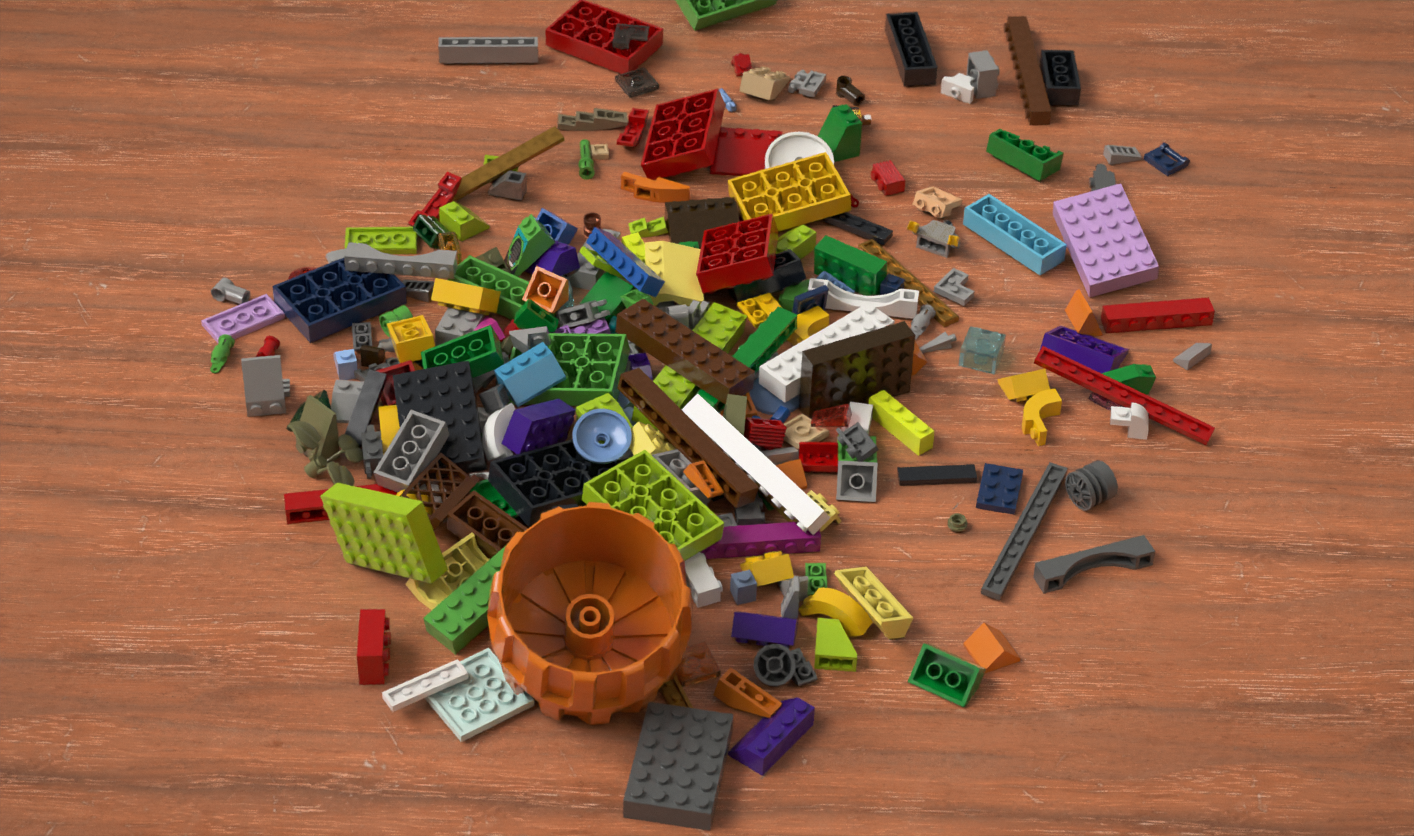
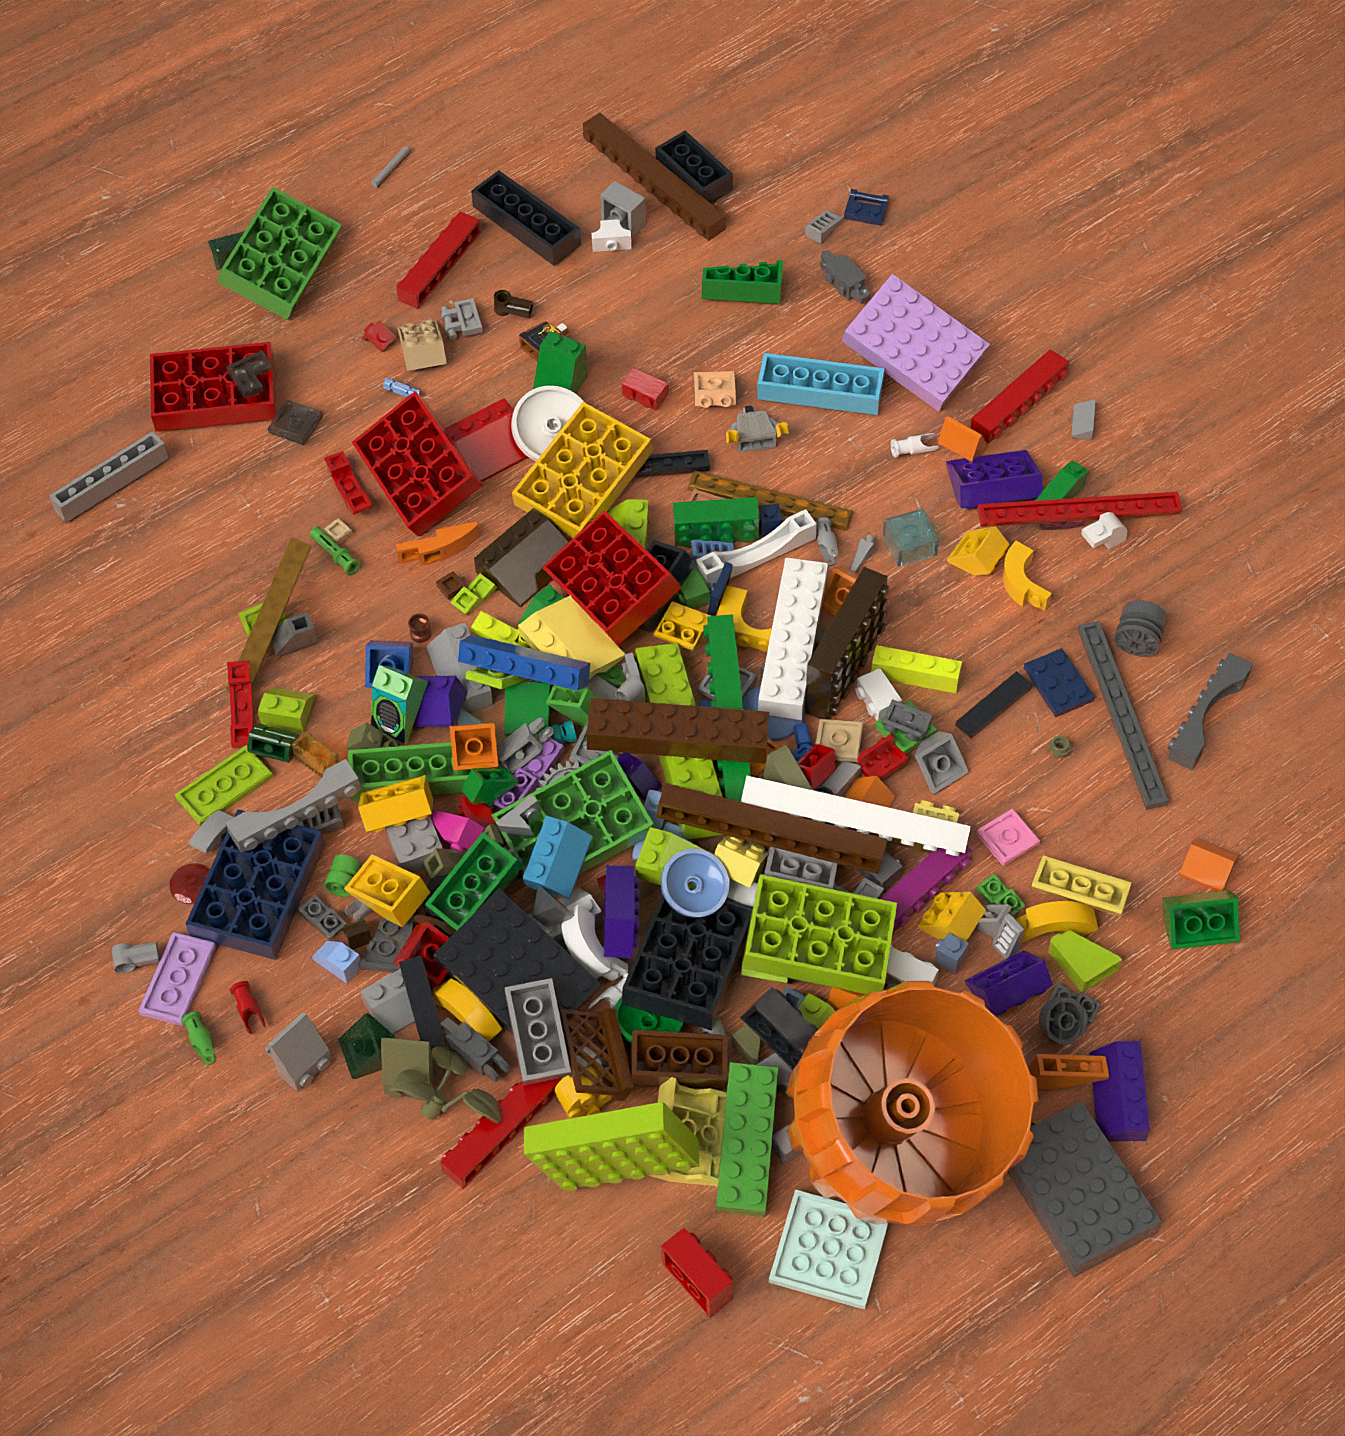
camera: 35 degrees left, 15 degrees up
(425, 685) = (786, 1278): white plate -> none
(598, 120) = (297, 498): dark tan slope -> none
(637, 213) = (450, 585): none -> reddish brown plate
(699, 475) = (829, 865): orange slope -> none
(827, 44) = (438, 260): none -> red brick
(835, 417) = (862, 697): clear red slope -> none
(859, 550) = (1008, 837): none -> bright pink plate
(952, 287) = (819, 484): light grey plate -> none
(1045, 303) = (912, 445): none -> white piece

